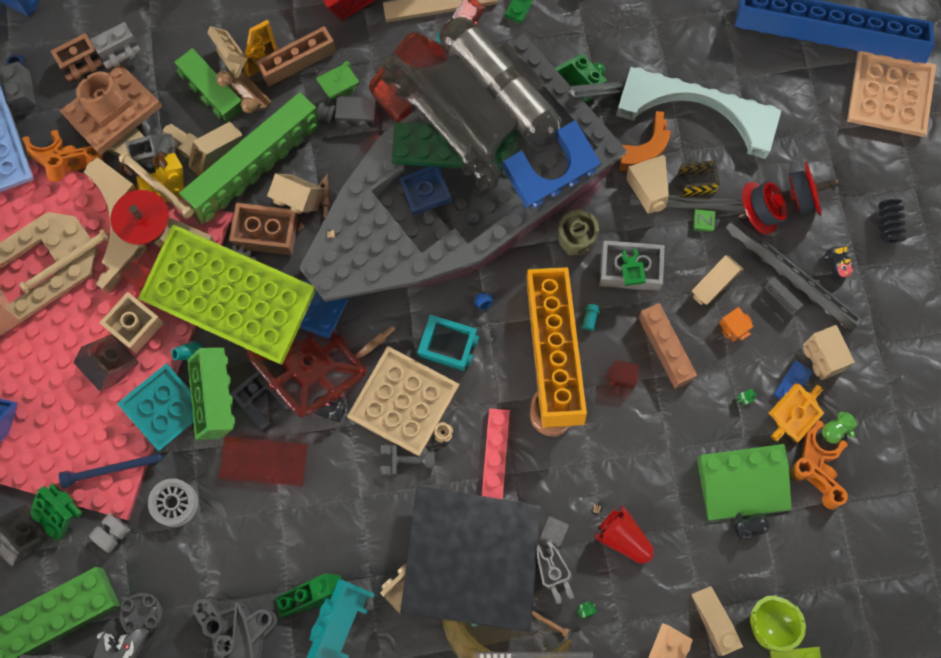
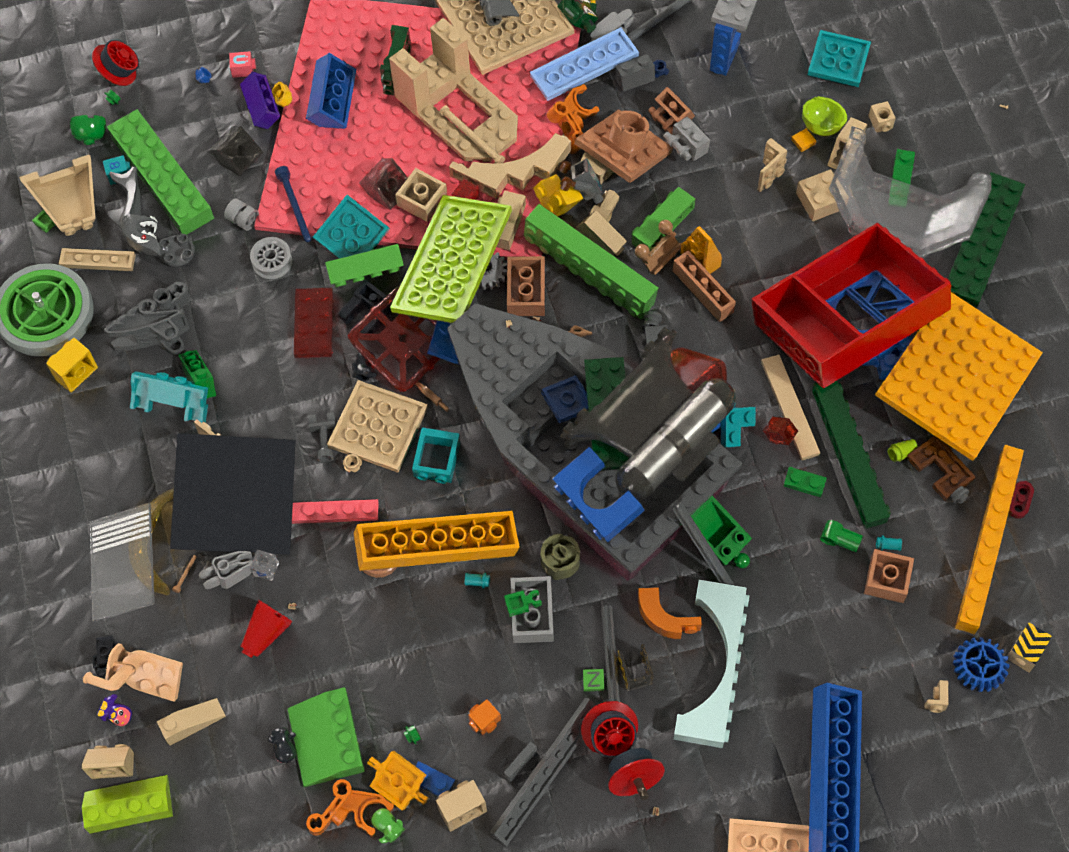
camera: 85 degrees right, 10 degrees down
(54, 510) = (257, 168): green plate -> none
(139, 217) = (512, 179): red piece -> none
(185, 351) = (405, 245): teal cone -> none
(187, 211) = (570, 161): tan bar -> none
(228, 50) = (705, 219): tan panel -> none
(296, 193) = (562, 303): tan brick -> none
(338, 81) = (685, 325): bright green hat -> none
(483, 301) = (482, 482): blue plate -> none
(586, 610) = (196, 604): green plate -> none
(623, 374) = (422, 615): clear red brick -> none
(650, 183) = (621, 619): tan slope -> none
(667, 346) = (454, 652): nougat brick -> none
(716, 280) = (530, 695): tan slope -> none
(777, 624) = (189, 771): lime cylinder -> none
(840, 262) = (564, 818): black animal -> none

